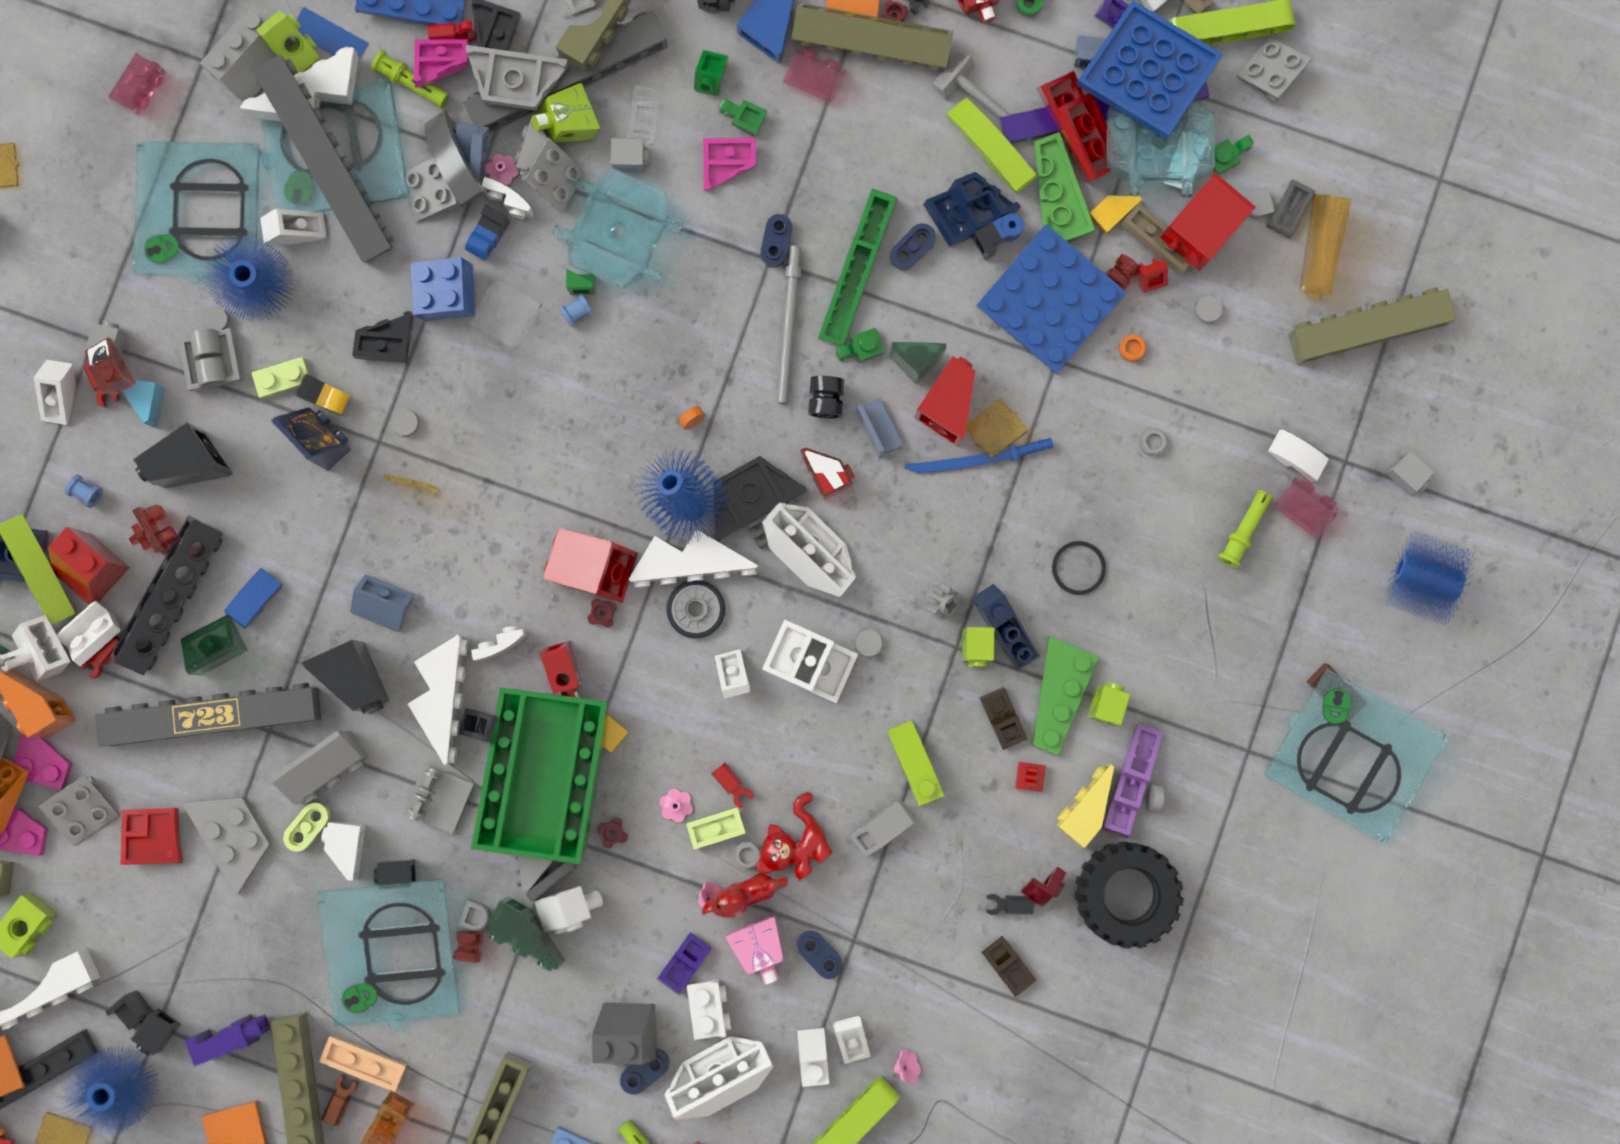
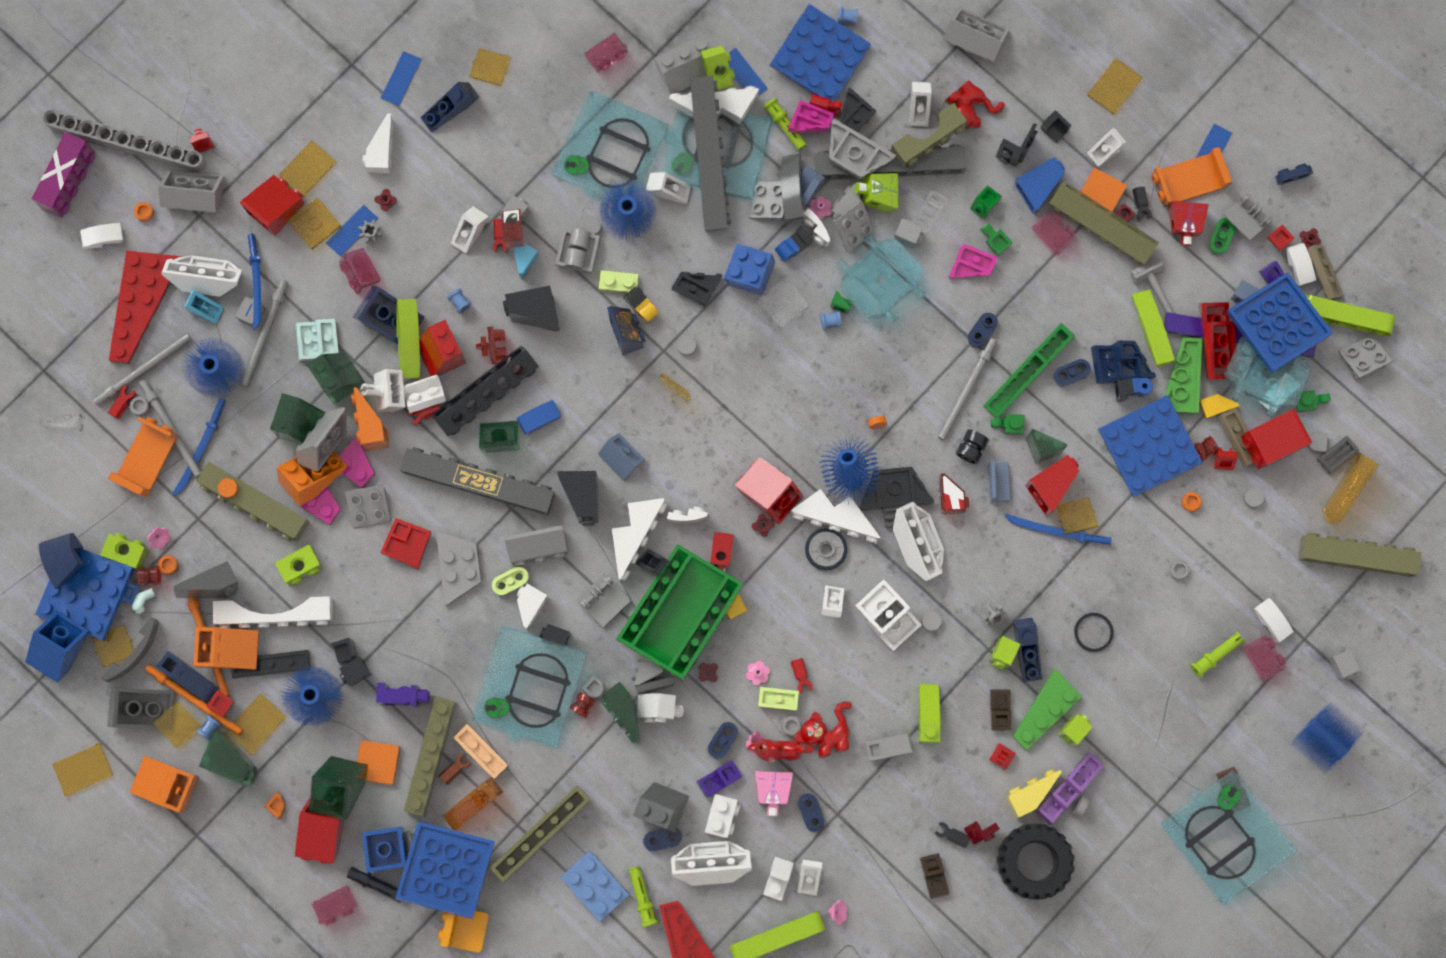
camera: 25 degrees right, 5 degrees down
(667, 912) = (722, 740): none -> dark blue plate

